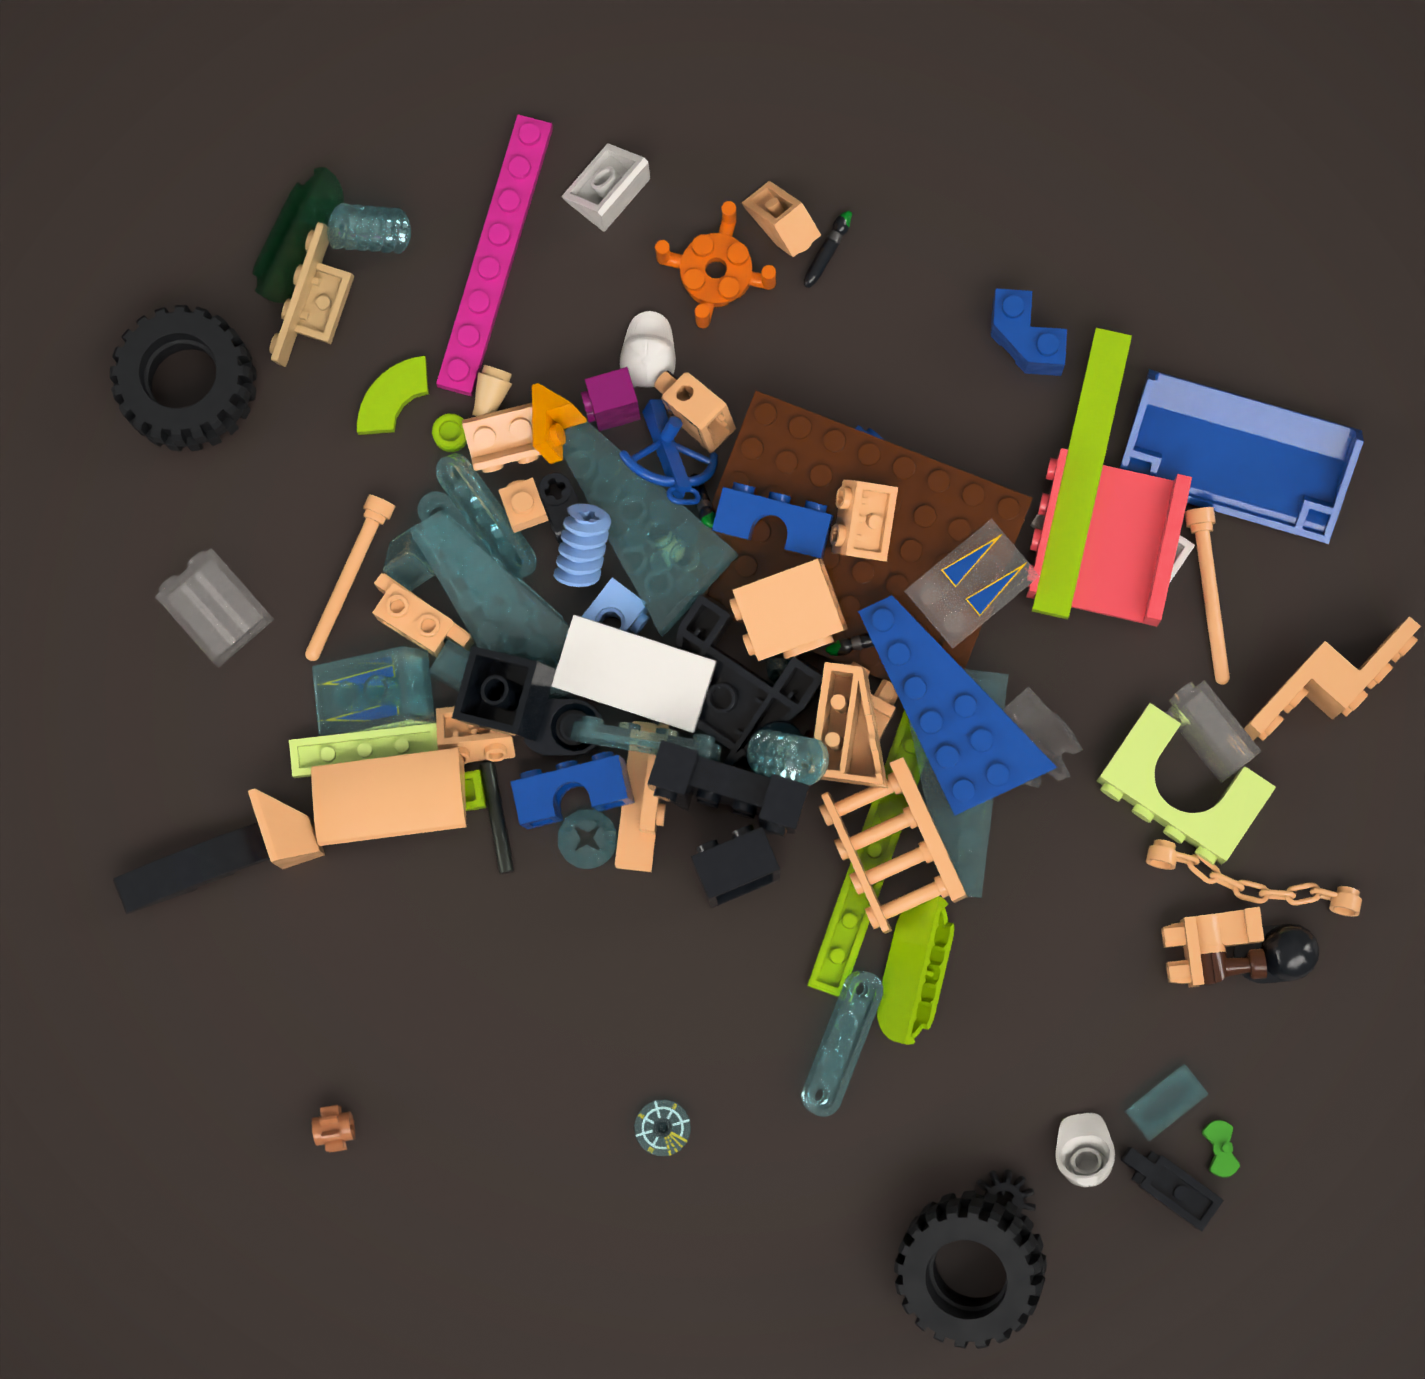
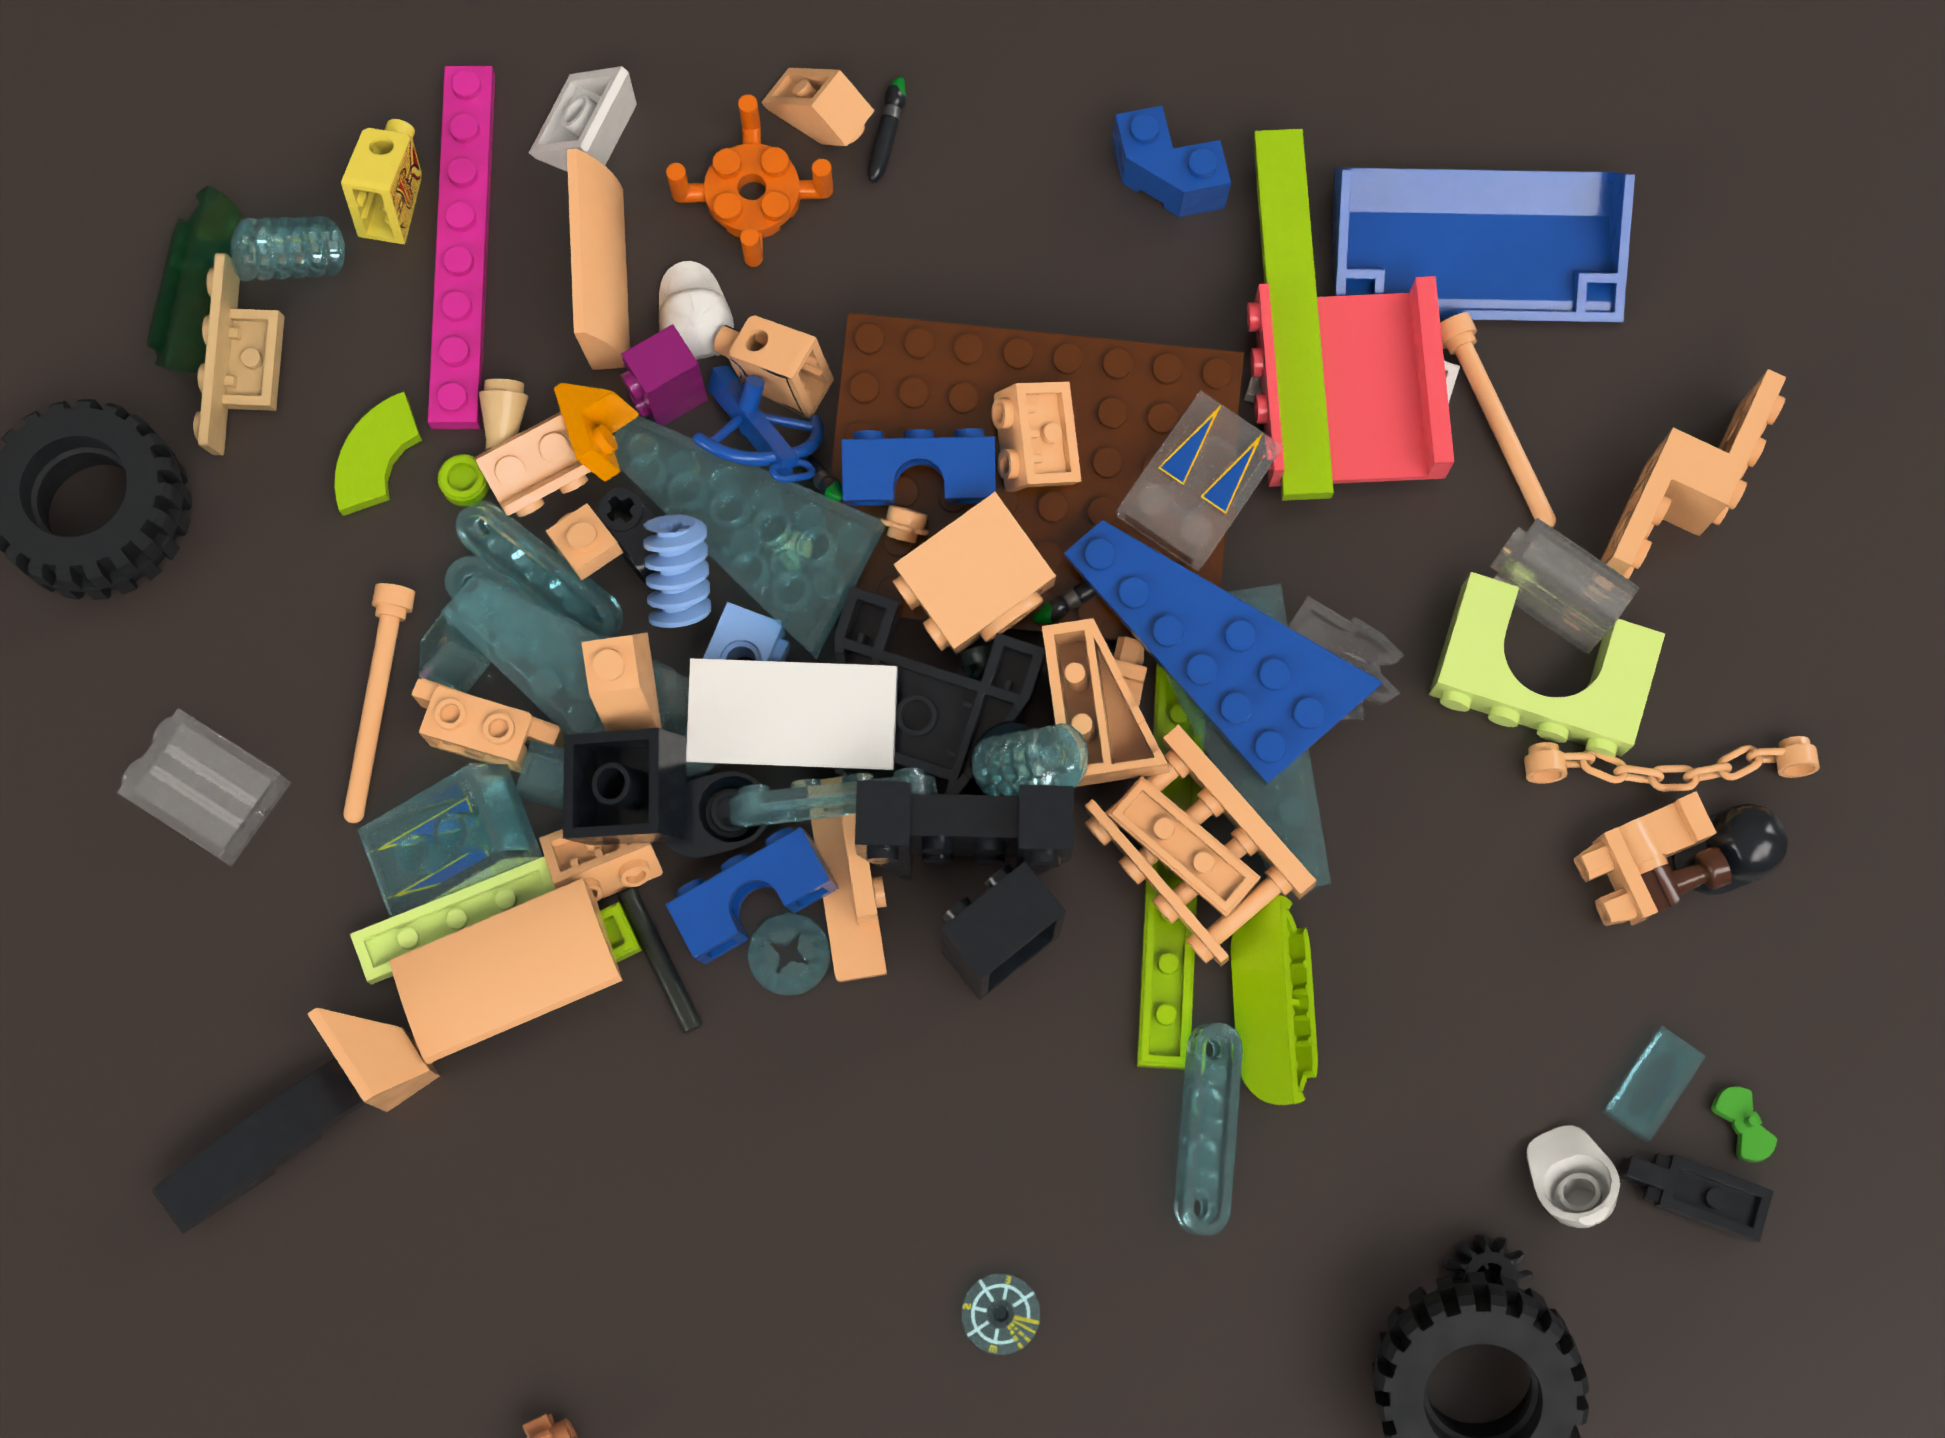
camera: 25 degrees left, 5 degrees down
(451, 194) = (383, 182): none -> light yellow torso
(522, 619) = (622, 682): none -> light nougat slope
(588, 298) = (598, 261): none -> light nougat slope
(753, 556) = (905, 523): none -> light nougat plate
(881, 844) = (1184, 846): none -> light nougat tile

